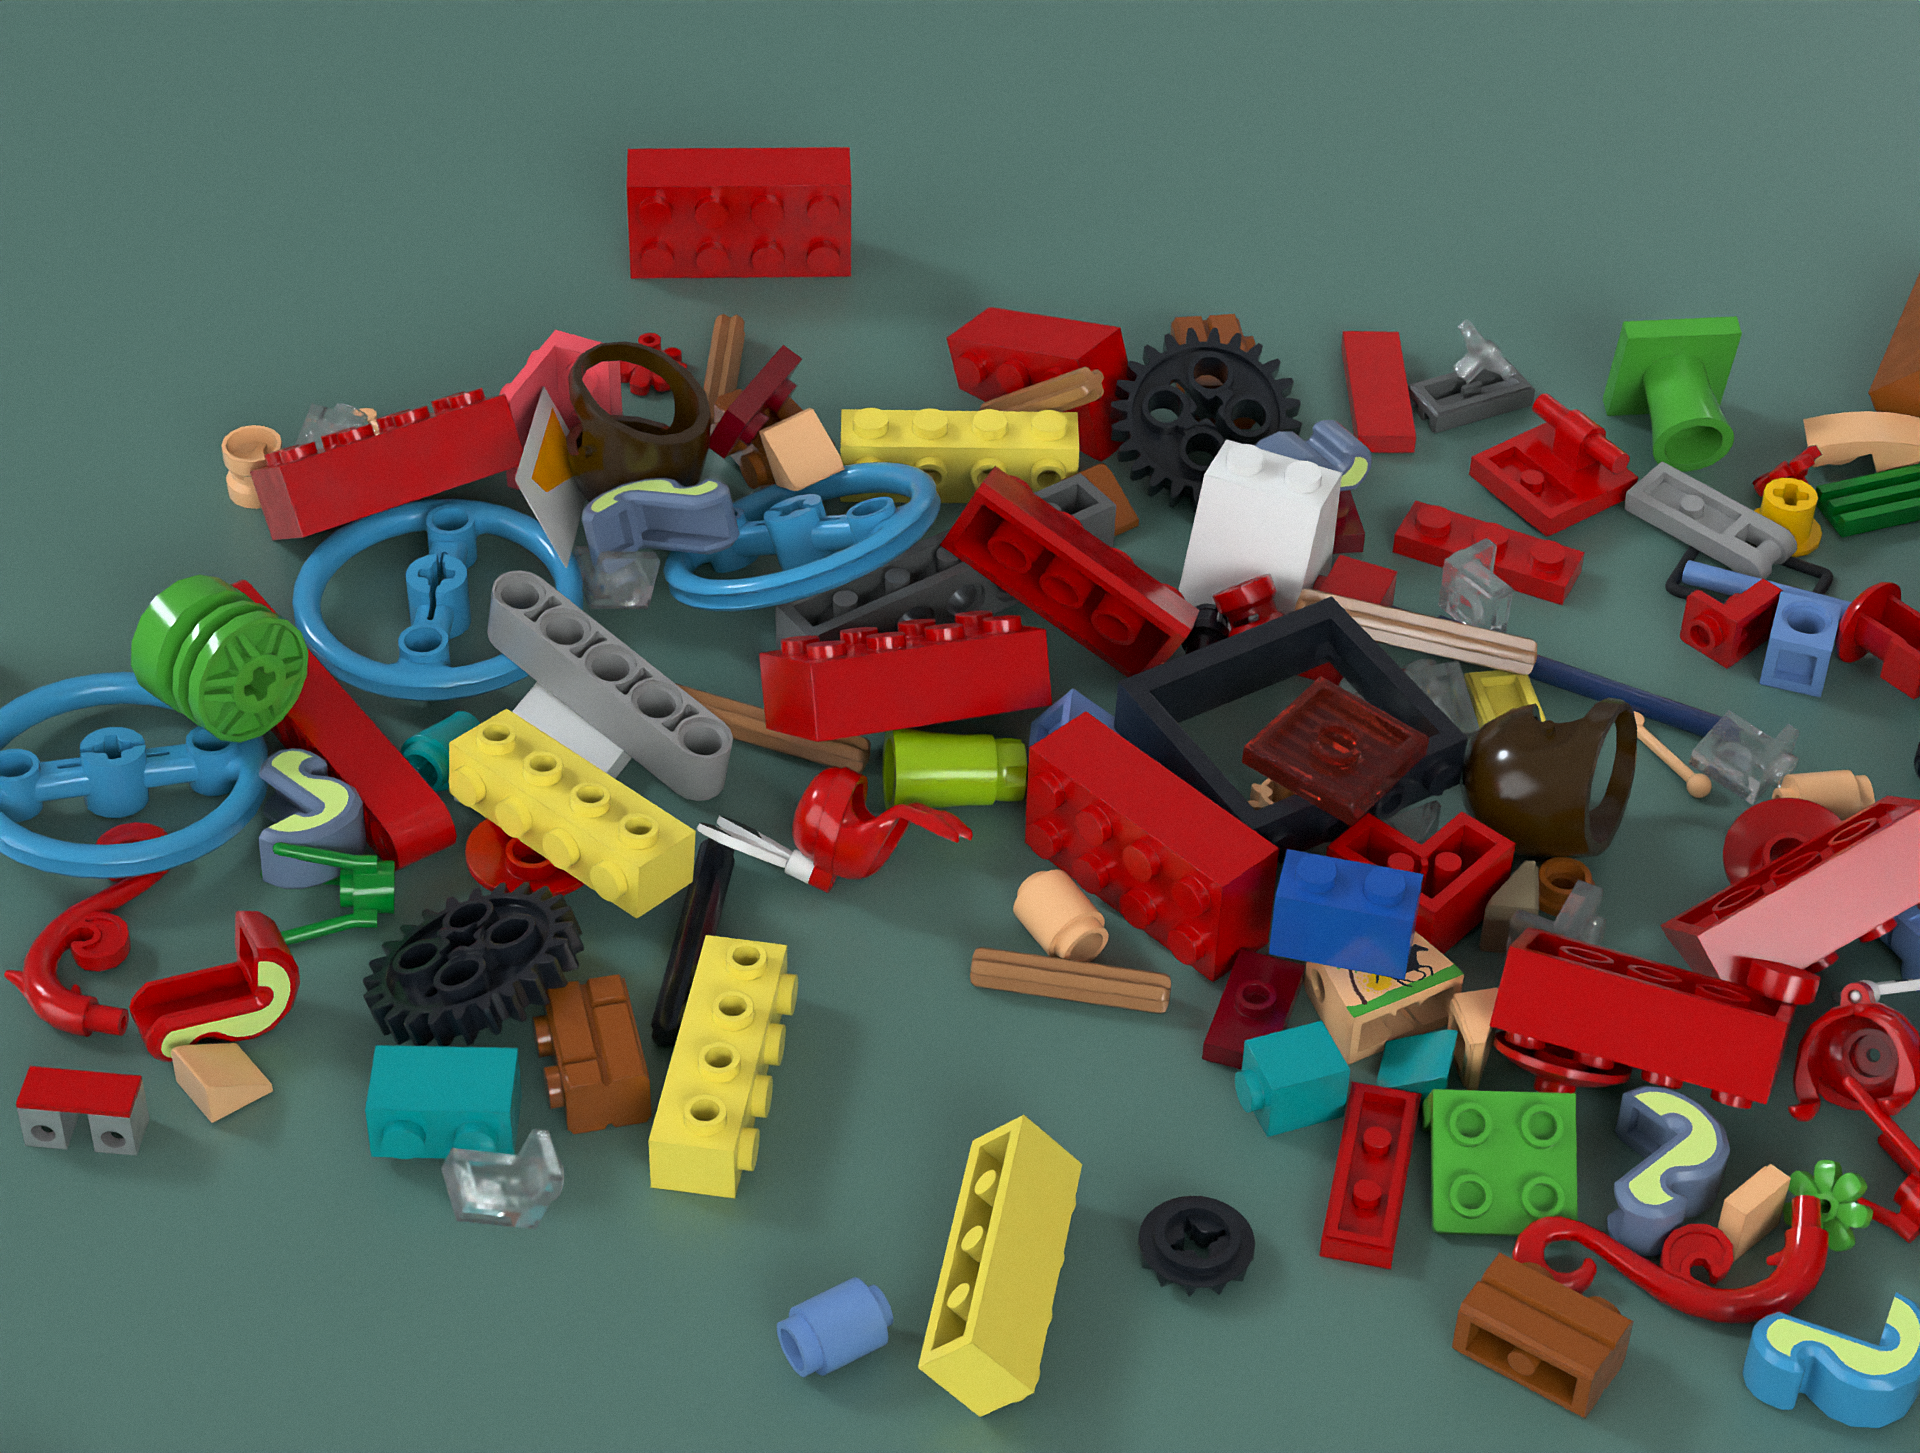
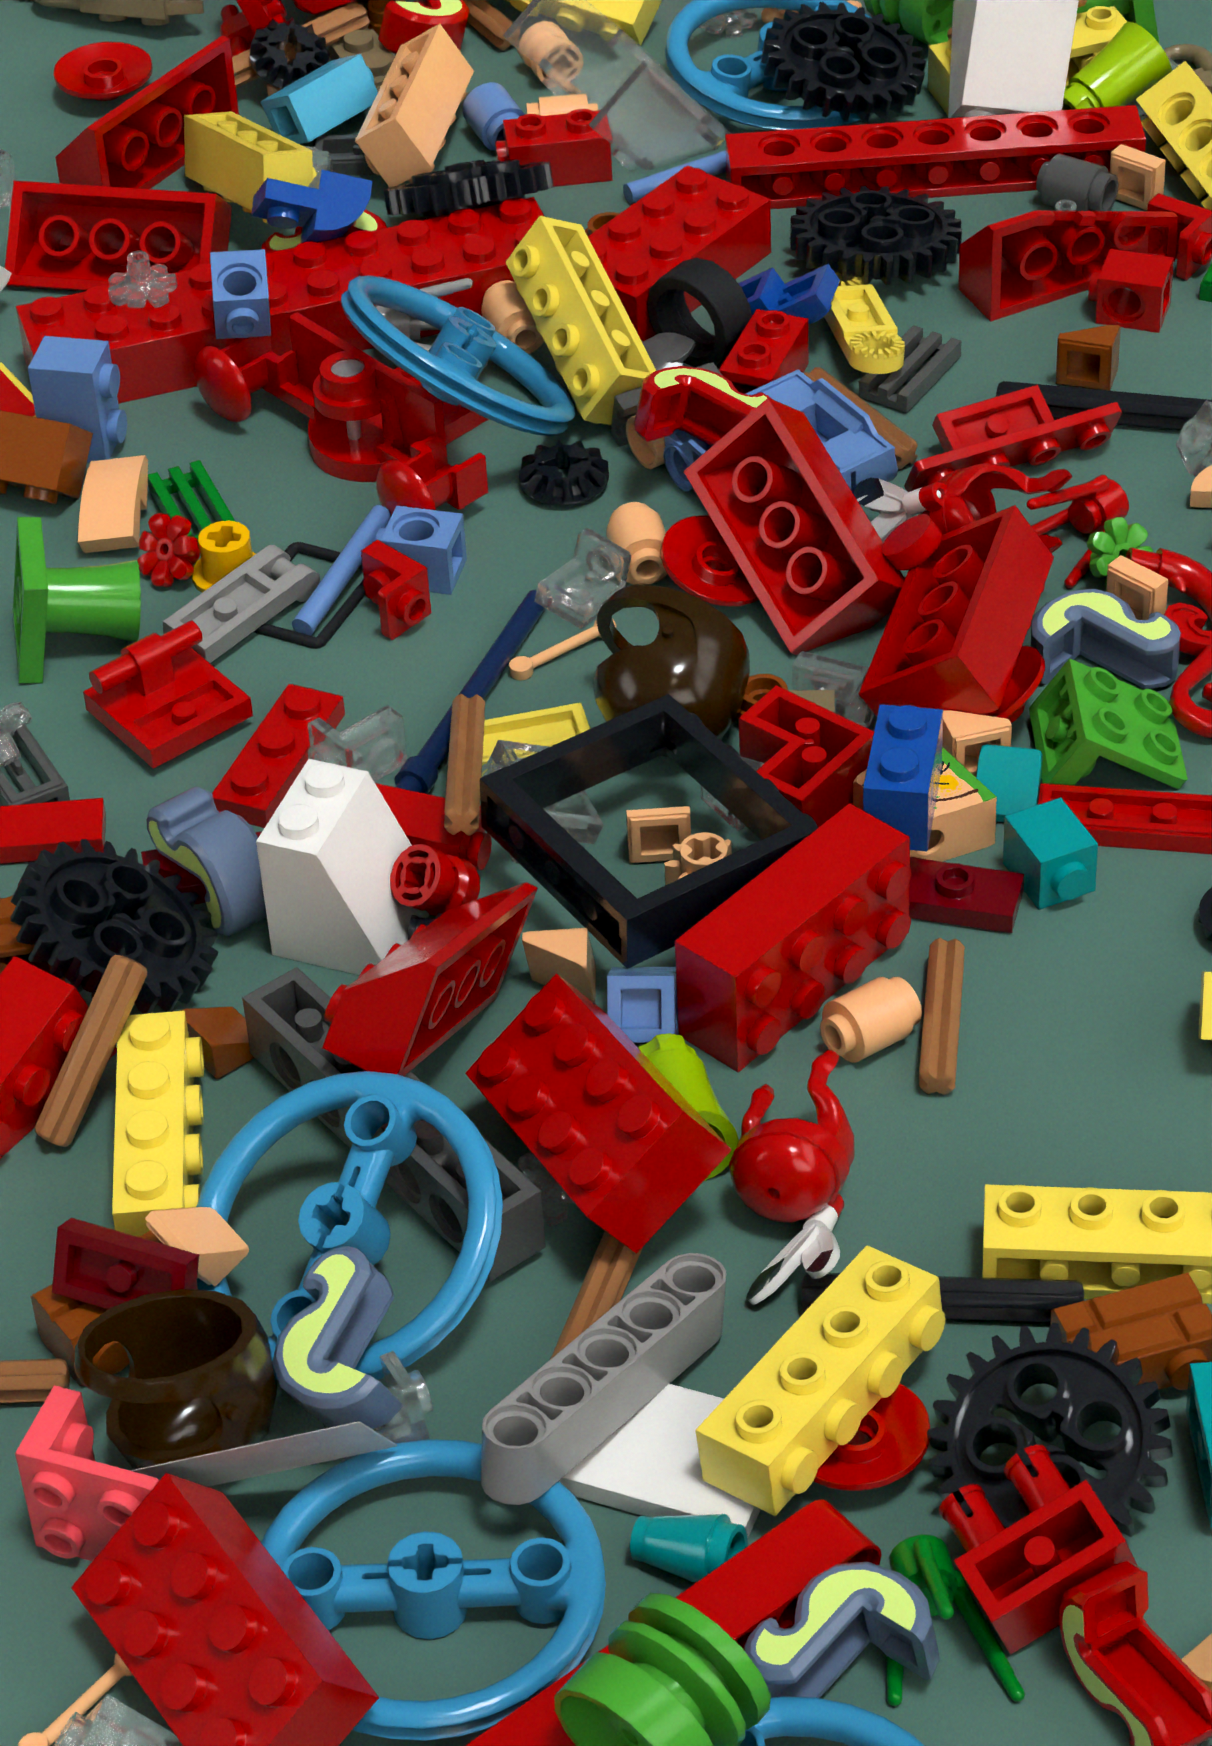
camera: 90 degrees left, 0 degrees up
(345, 932) = (1029, 1565): none -> red brick
(1335, 750) = (711, 767): clear red tile -> none

